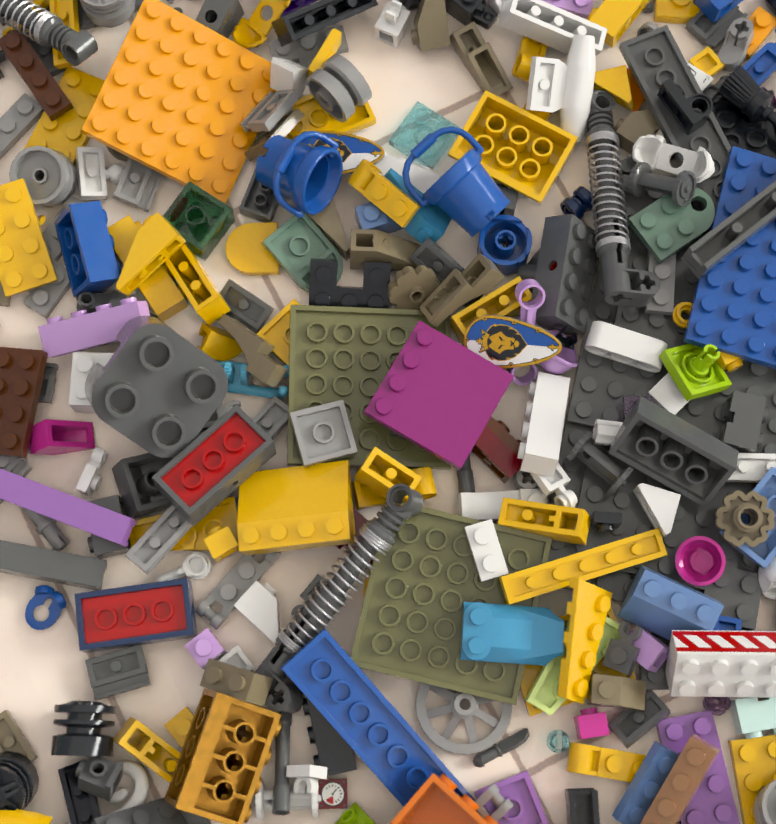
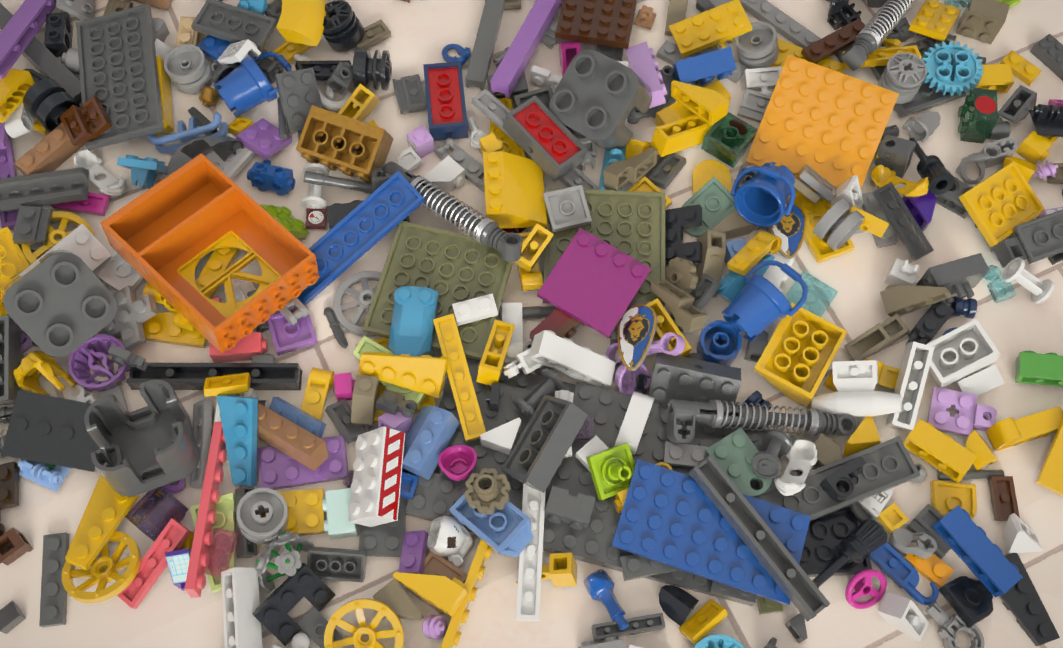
camera: 90 degrees right, 10 degrees down
(236, 682) = (393, 150): dark tan brick -> none
(306, 774) = (326, 193): white tile -> none
(552, 741) = (335, 363): clear light blue hinge -> none

